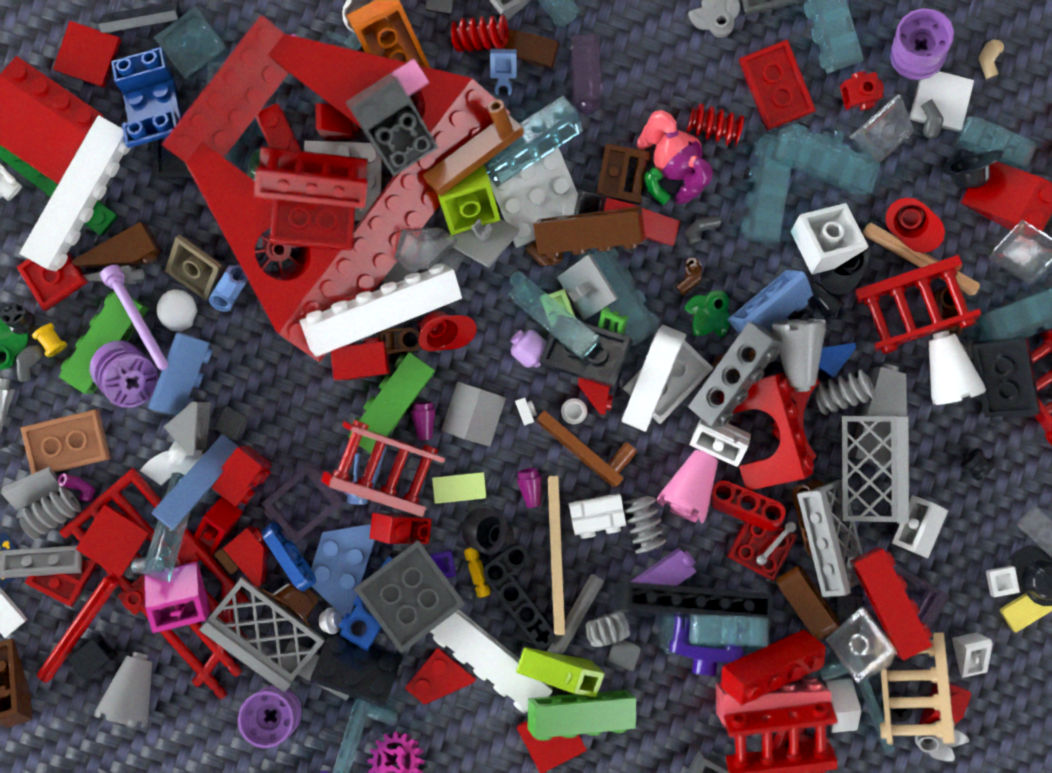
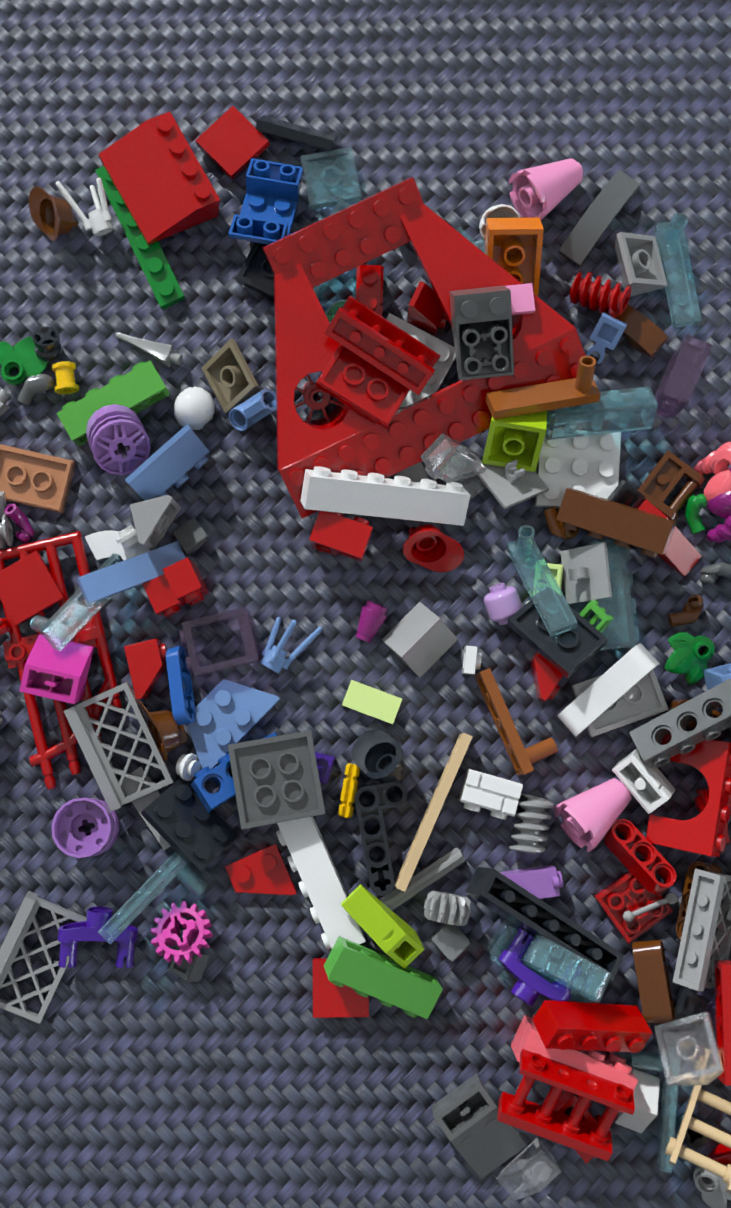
camera: 25 degrees right, 5 degrees down
(52, 286) = (98, 320): red tile -> none
(76, 195) = (159, 259): white brick -> none
(114, 278) = (153, 350): lavender piece -> none
(129, 247) = (181, 329): reddish brown slope -> none
(217, 525) = (129, 623): red slope -> none
(226, 561) = (121, 660): reddish brown tile -> none
(364, 487) = (286, 652): red fence -> none
(395, 339) = (383, 533): reddish brown piece -> none
(395, 397) = (349, 590): bright green brick -> none
(400, 528) = (297, 711): red slope -> none
(530, 486) = (440, 733): magenta cone -> none
(574, 411) = (515, 684): white plate -> none

